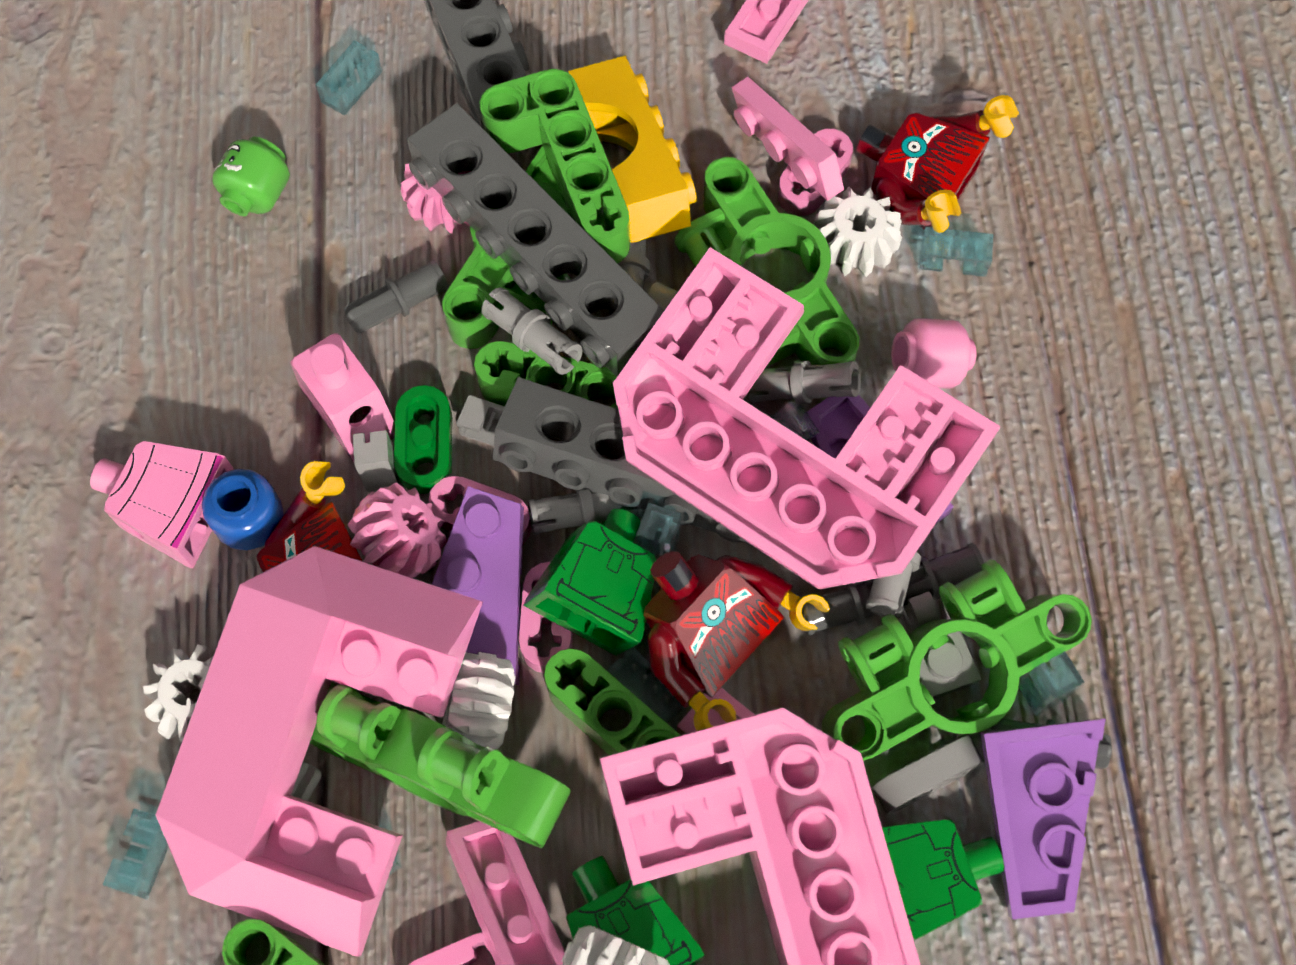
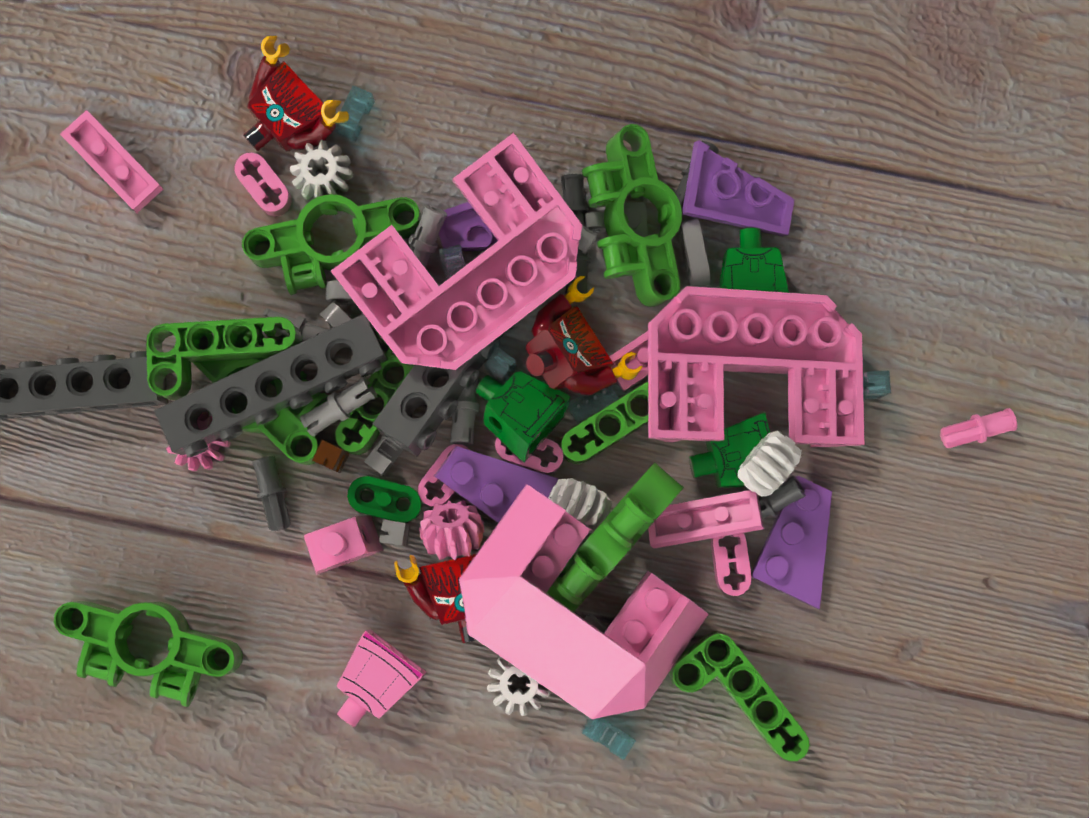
camera: 75 degrees left, 15 degrees up
(146, 162) = (108, 656): none -> bright green piece
(242, 508) = (391, 634): blue head -> none
(251, 176) = (145, 573): bright green head -> none
(349, 78) = (78, 486): clear light blue piece -> none
(461, 347) = (330, 456): none -> reddish brown piece
(650, 176) = (249, 295): yellow arch -> none
(787, 139) = (240, 195): bright pink plate -> none
(935, 351) = (426, 154): bright pink head -> none
(1051, 683) = (665, 161): clear light blue piece -> none

